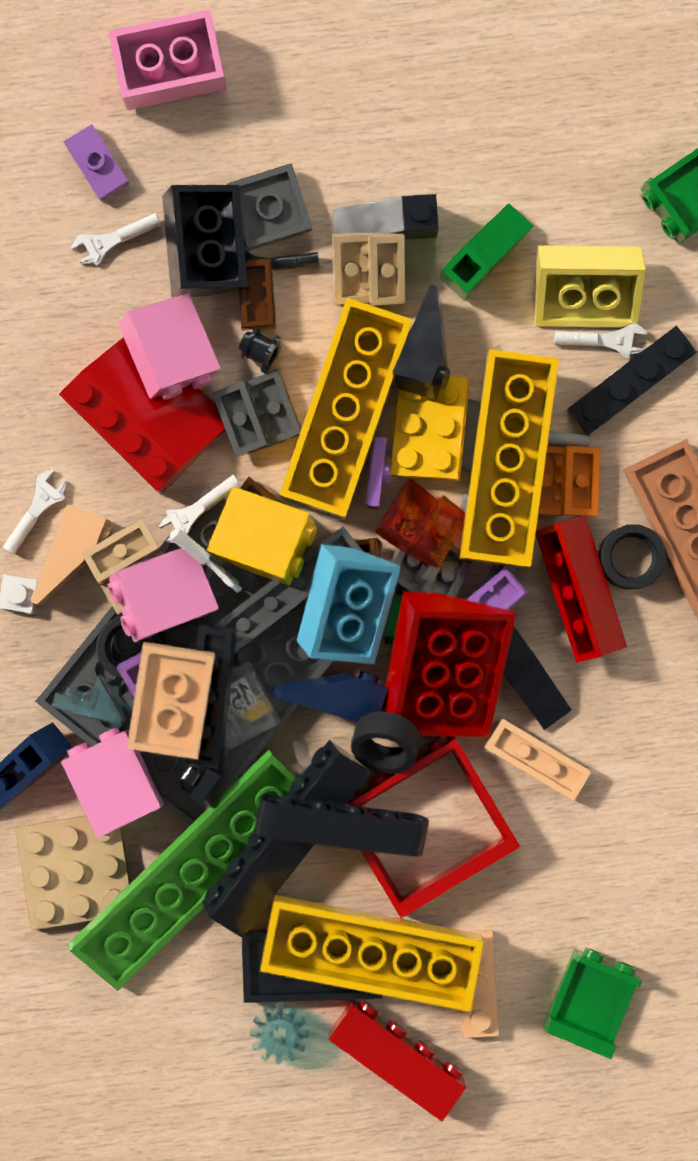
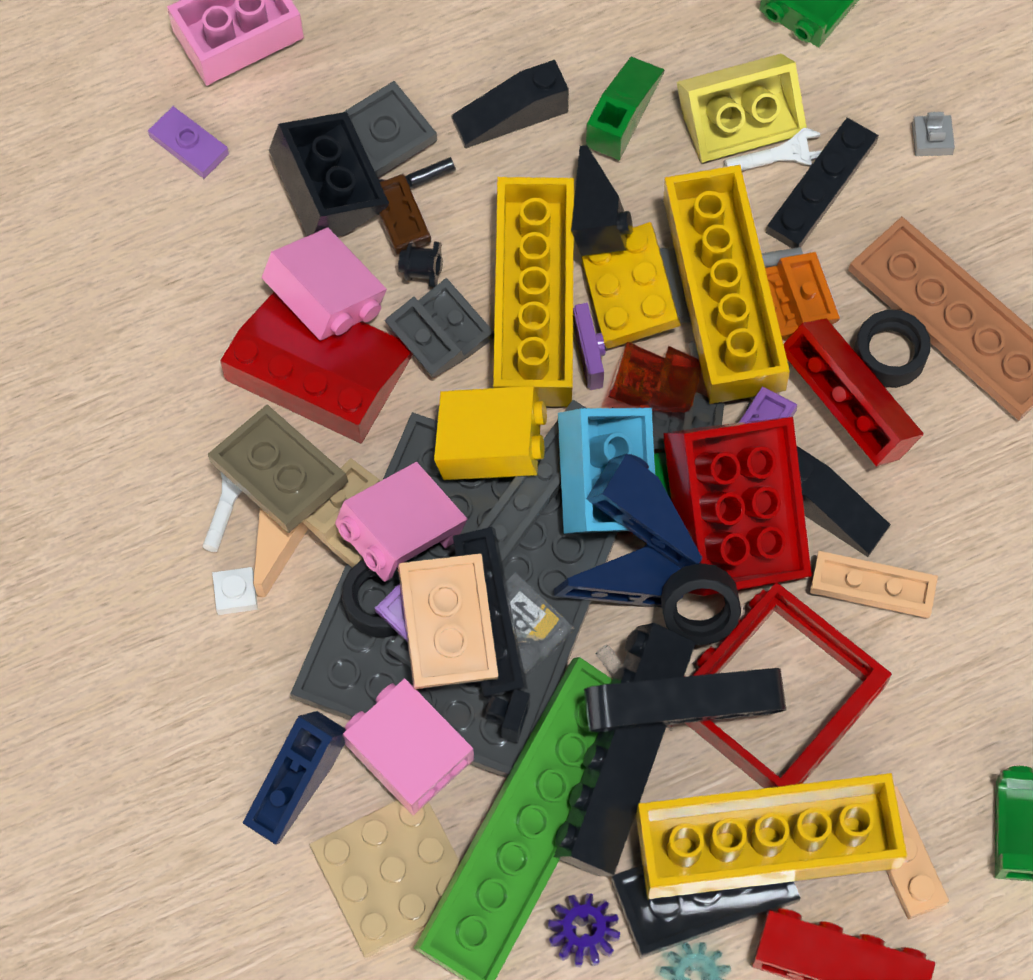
camera: 20 degrees left, 20 degrees down
(76, 511) = (278, 468): none -> dark tan plate
(100, 244) = (217, 217): white piece -> none
(100, 706) = (368, 669): clear light blue slope -> none
(187, 516) = (397, 450): white piece -> none
(203, 557) = (432, 469): white piece -> none
(207, 955) = (585, 944): none -> dark purple gear
(362, 651) = (642, 506): none -> dark blue slope
(369, 268) = (508, 148): tan slope -> none

